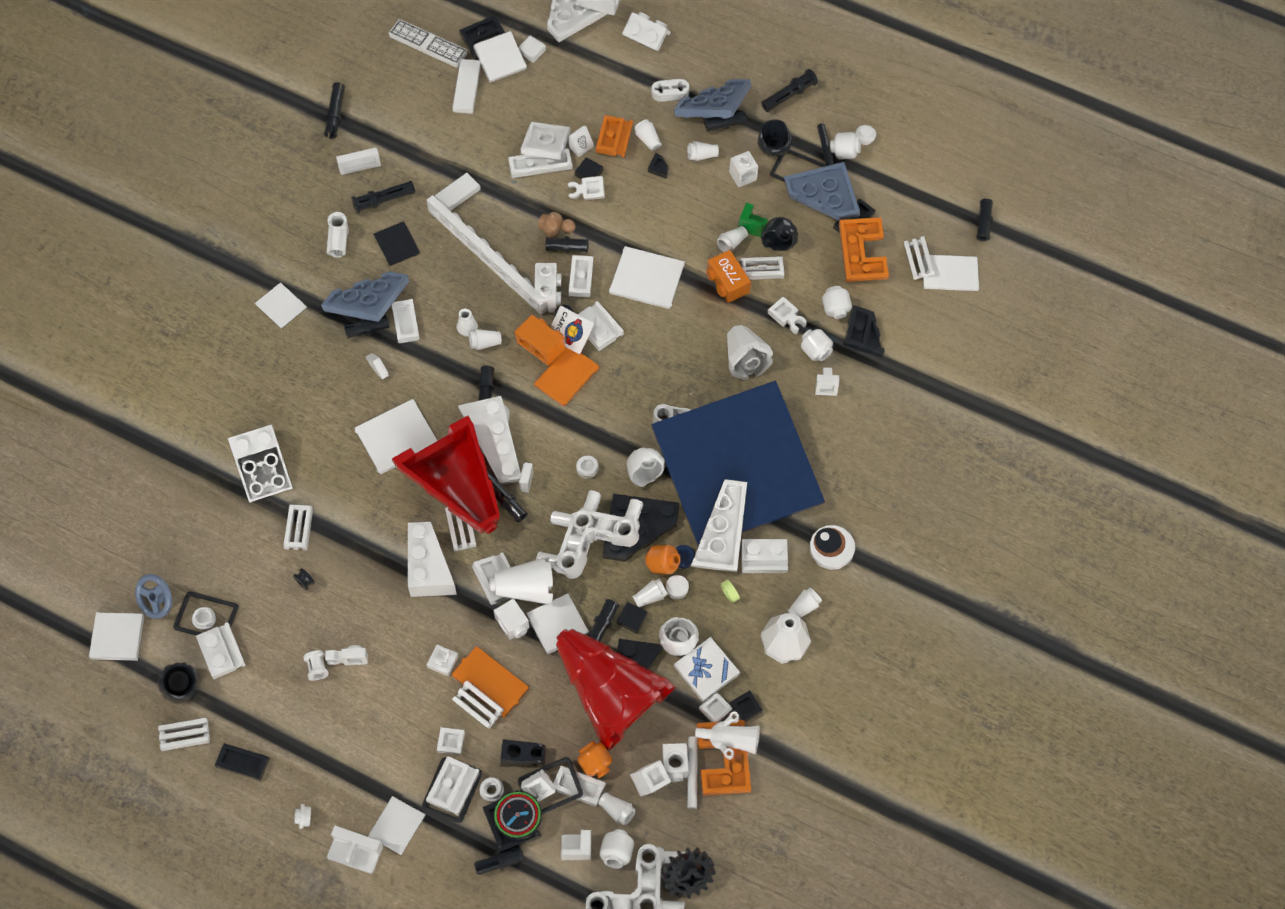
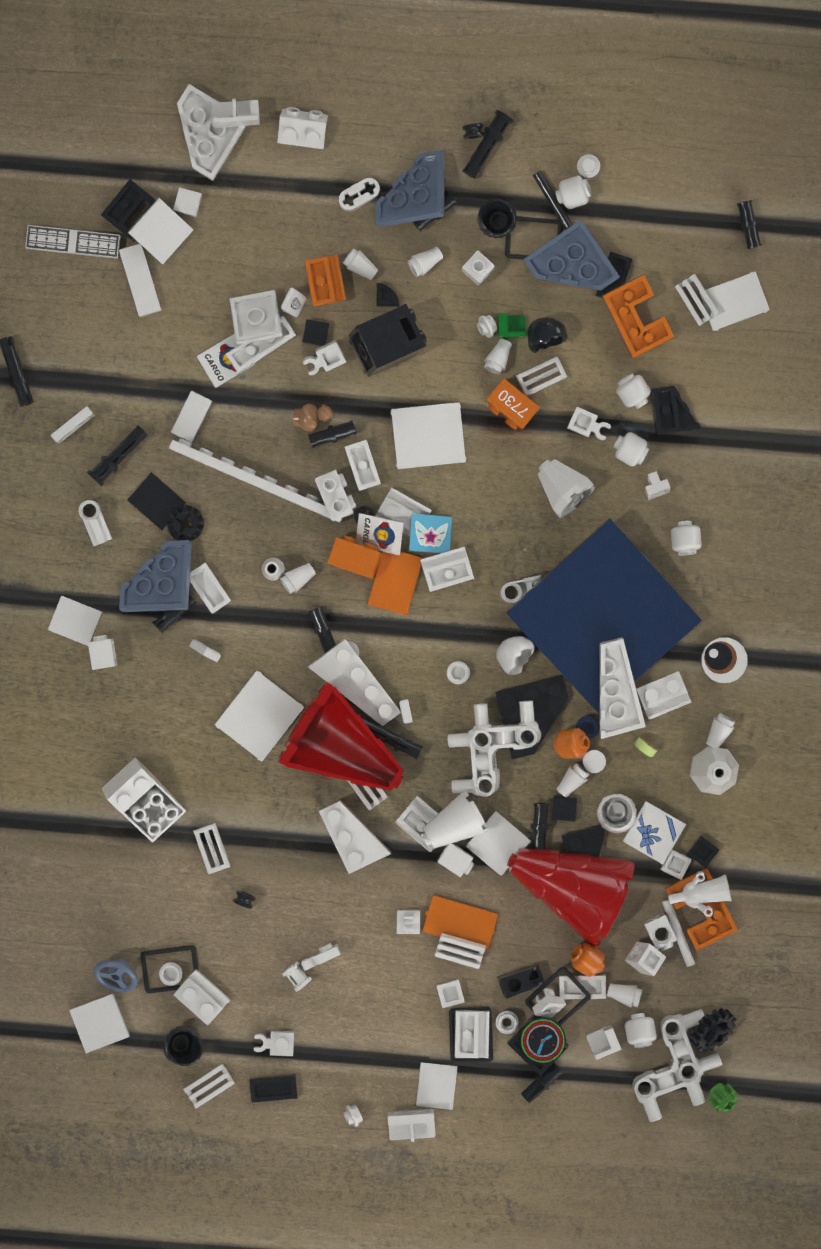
camera: 20 degrees left, 25 degrees up
(269, 722) = (280, 1043): none -> white plate
(289, 333) = (102, 652): none -> white brick
(413, 257) = (182, 512): none -> black gear
(498, 165) = (217, 363): none -> white sticker
(614, 347) = (430, 533): none -> medium azure sticker
(615, 380) = (447, 569): none -> white plate
(645, 186) = (387, 340): none -> black container
(732, 213) = (486, 326): none -> white plate
(781, 78) = (473, 131): none -> black bush
(837, 431) = (686, 538): none -> white head

